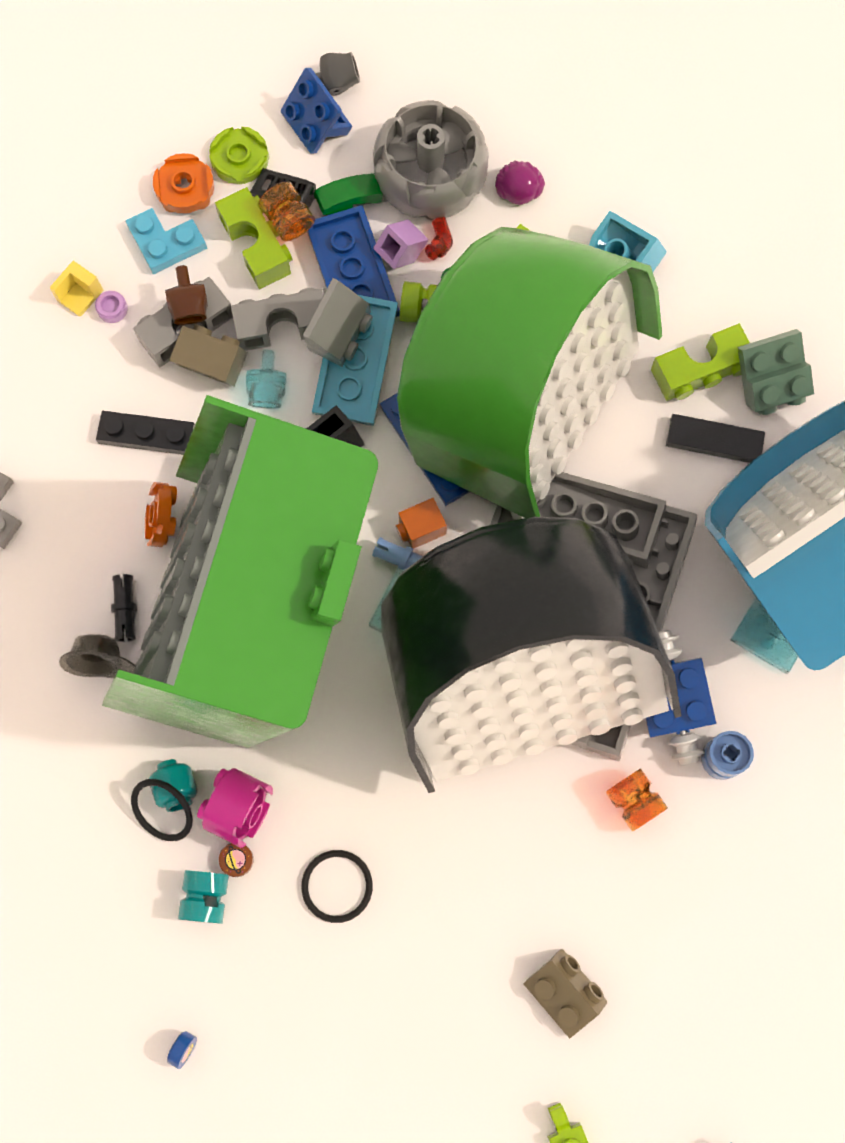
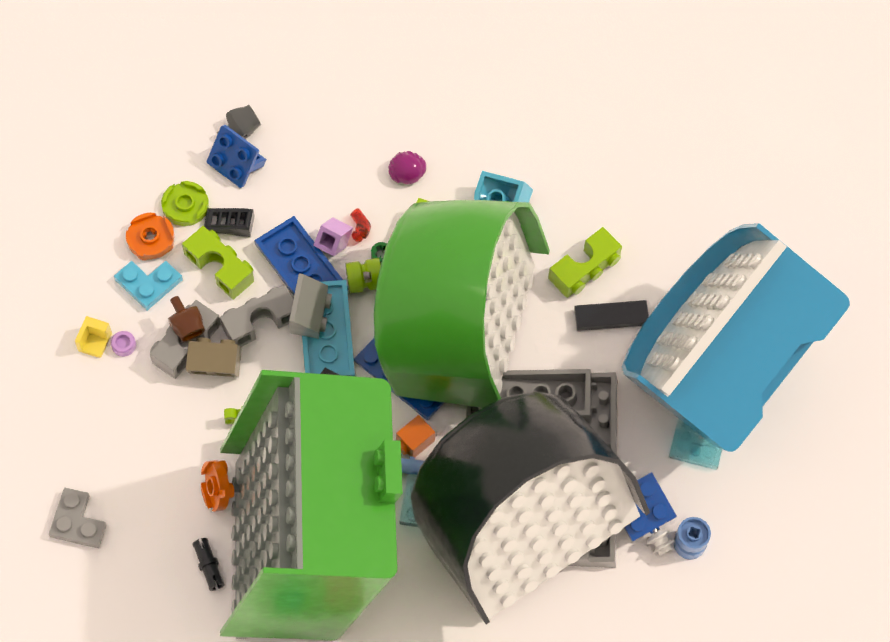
camera: 20 degrees left, 10 degrees down
(95, 657) = (203, 605): clear smoke piece -> none
(144, 432) = (181, 430): black plate -> none
(265, 385) = (261, 362): clear light blue piece -> none
(284, 207) = (237, 233): clear orange wheel -> none
(348, 191) = (279, 209): green slope -> none
(438, 133) = (339, 147): light grey wheel -> none
(636, 800) = (637, 589): clear orange wheel -> none
(775, 372) = (640, 255): sand green plate -> none

